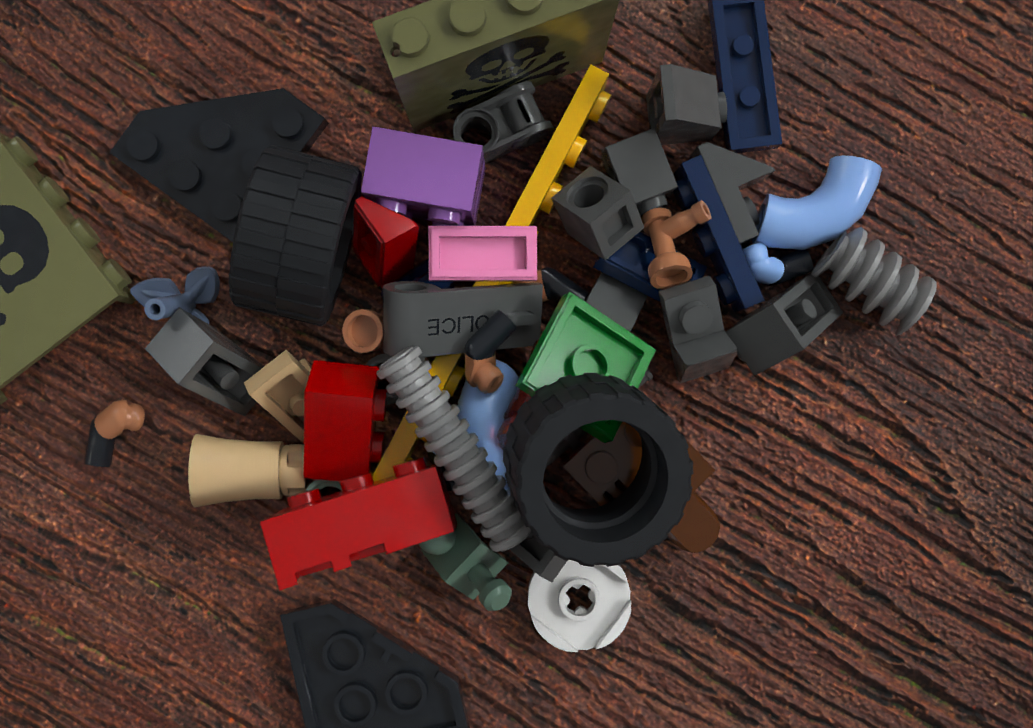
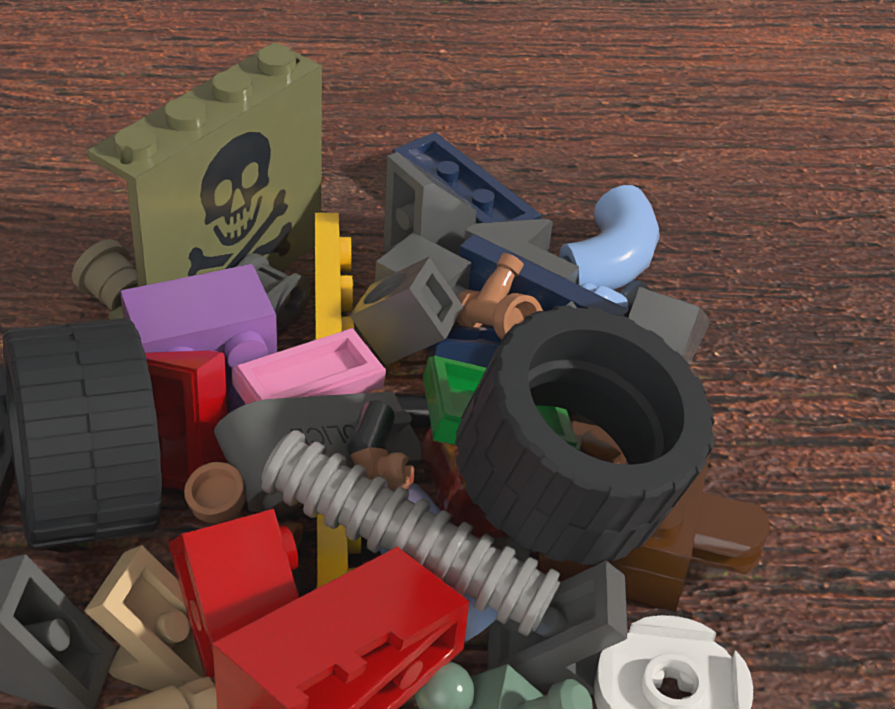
camera: 30 degrees left, 45 degrees down
(878, 278) = (716, 267): light grey piece -> none

